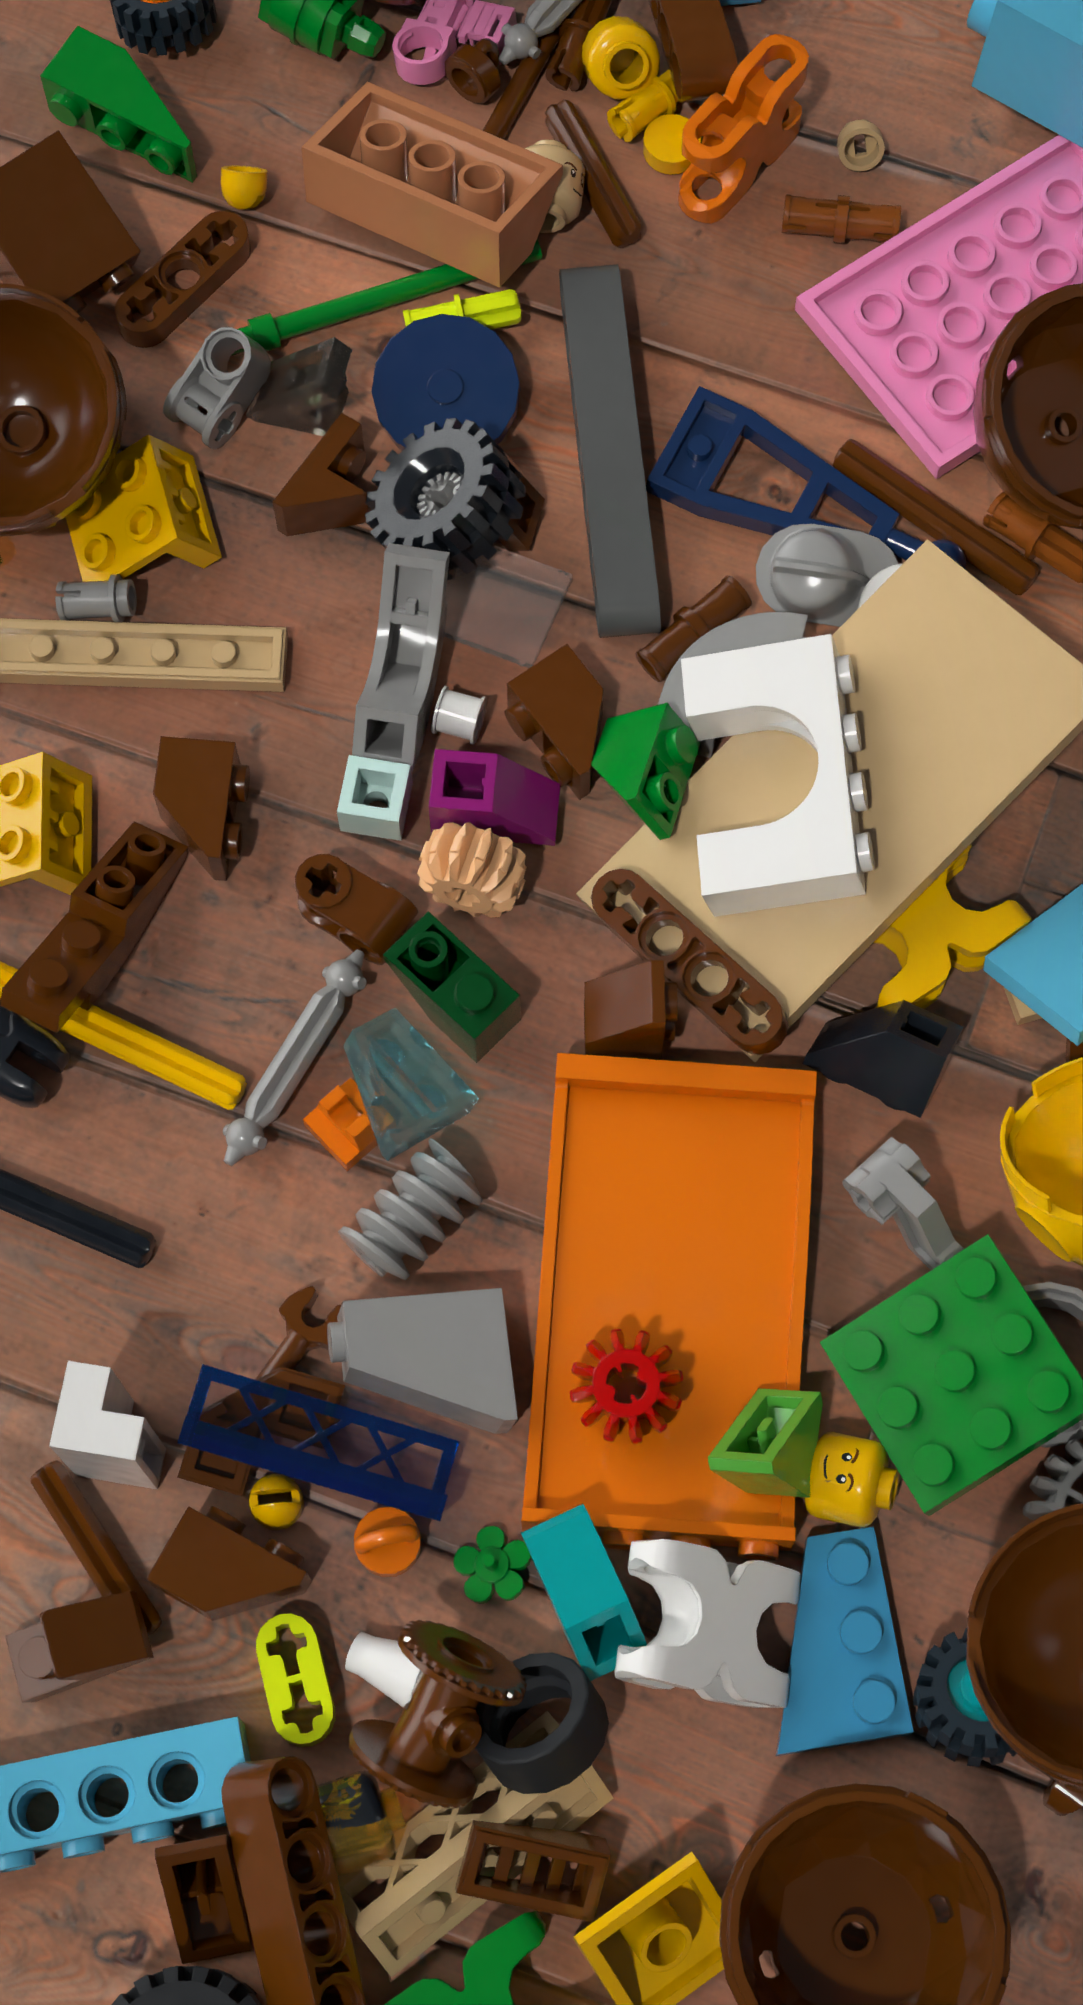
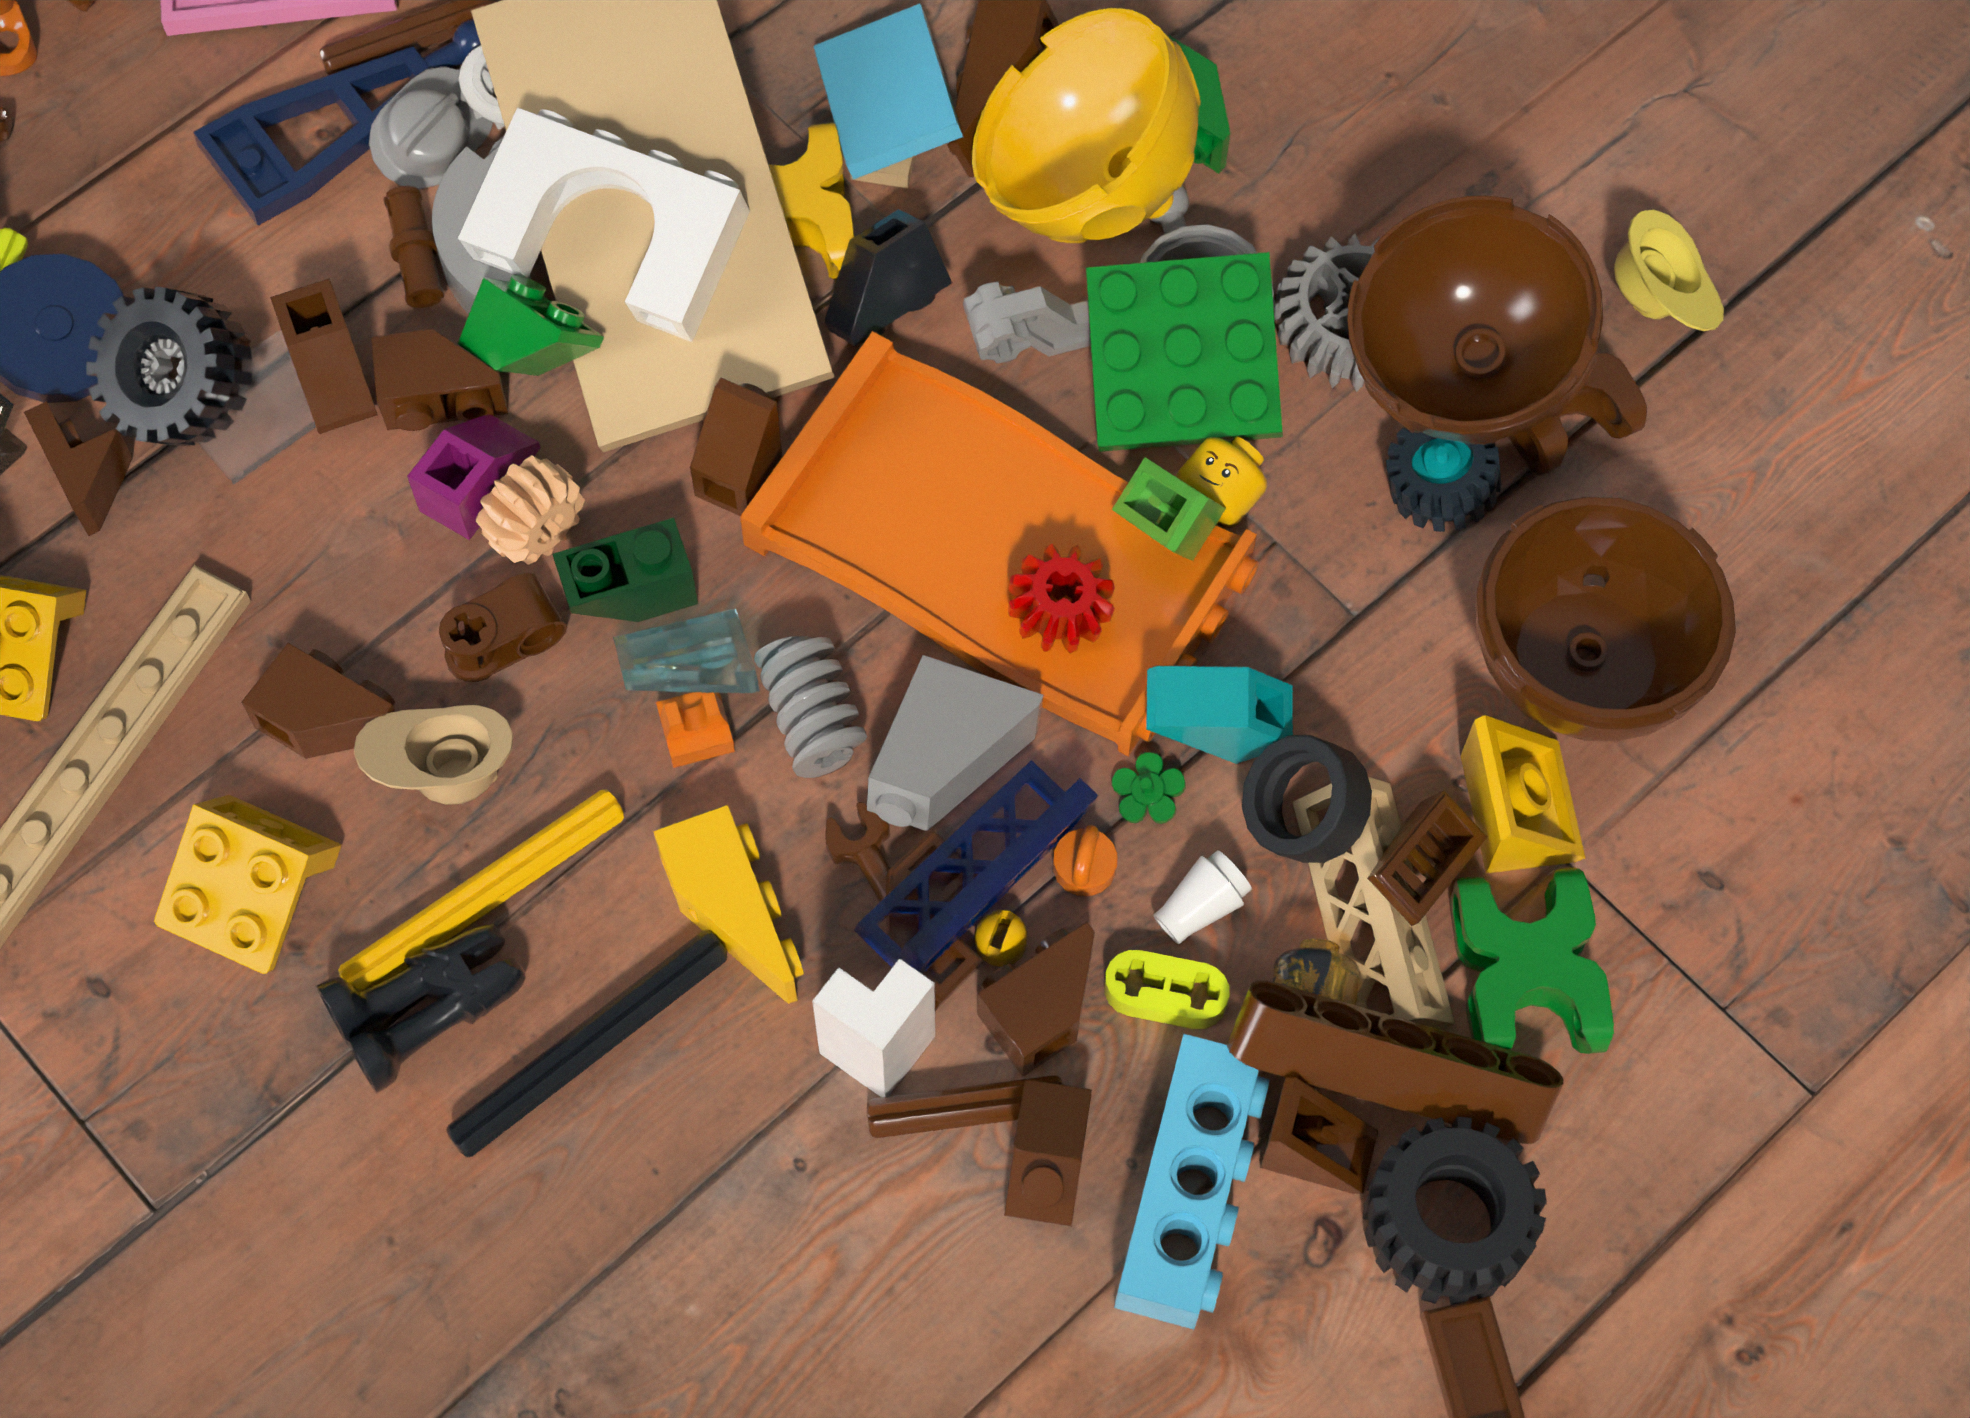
camera: 65 degrees left, 5 degrees down
(96, 599) = (57, 710): light grey pin -> none
(99, 930) = (389, 846): reddish brown slope -> none
(194, 1226) = (717, 890): none -> yellow slope
(196, 915) = (439, 751): none -> tan piece
(294, 1057) = (606, 738): light grey wheel -> none
(372, 781) = (405, 546): light aqua plate -> none
(406, 656) = (318, 497): light grey arch -> none
(441, 1720) = (1271, 864): reddish brown hose -> none
(459, 714) = (373, 462): white axle -> none
(529, 614) = (323, 356): none -> reddish brown slope
(609, 452) = (196, 227): dark grey beam -> none
(692, 957) = (716, 363): reddish brown beam -> none
(708, 1624) = (1291, 629): white piece -> none
(843, 1650) = (1360, 557): dark azure wing -> none

